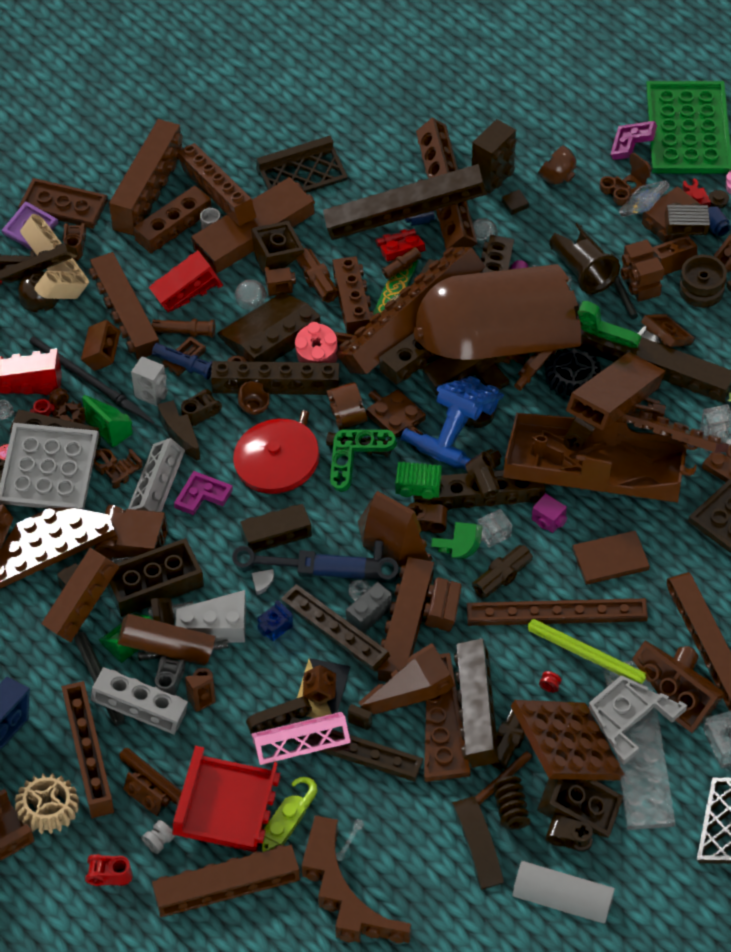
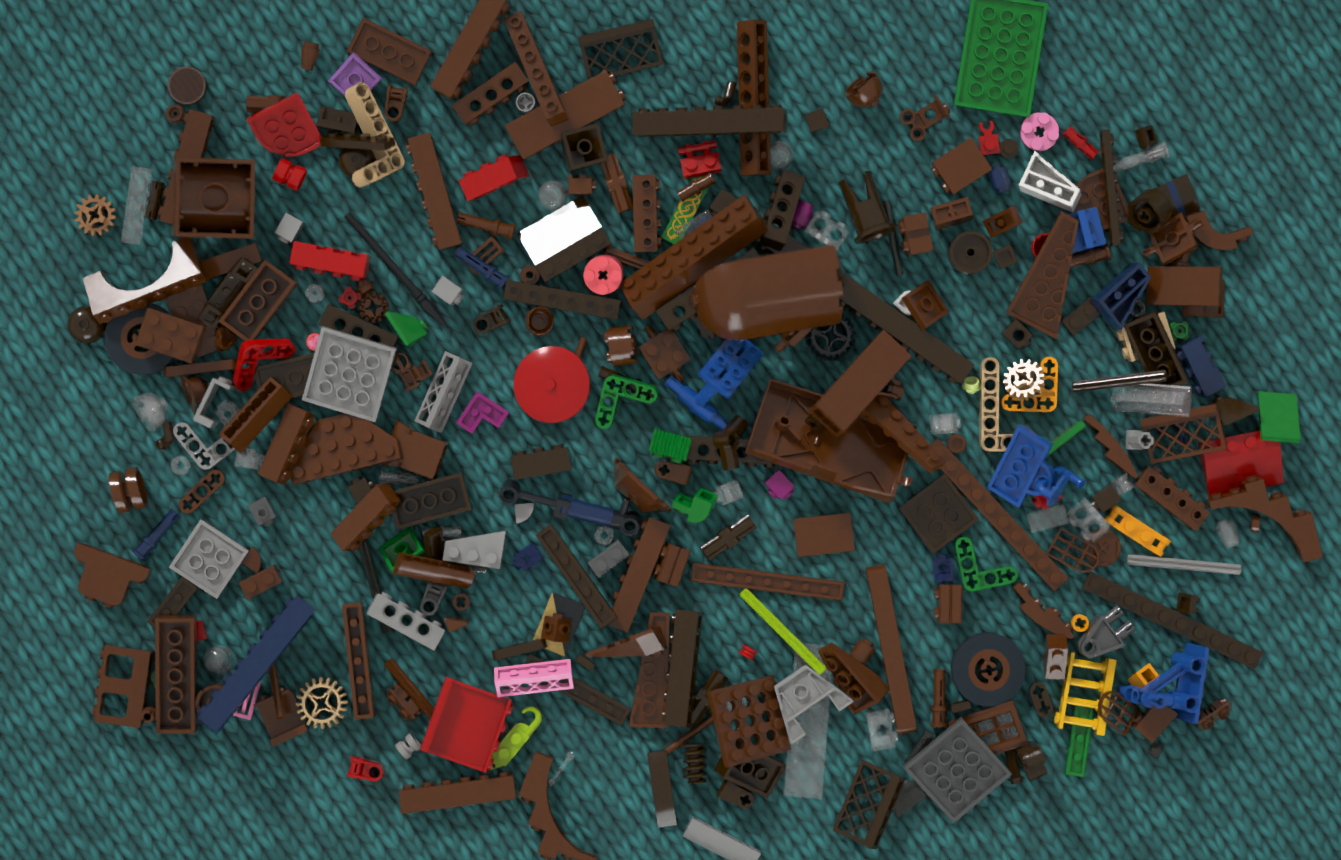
camera: 10 degrees right, 35 degrees up
(100, 345) = (408, 239): reddish brown brick -> none
(179, 428) = (469, 342): dark brown slope -> none
(495, 154) = (803, 78): dark brown brick -> none
(591, 323) = (854, 302): green beam -> none
(629, 135) = (939, 60): magenta plate -> none
(644, 198) = (937, 145): clear tile -> none
(687, 219) = (969, 186): dark brown brick -> none

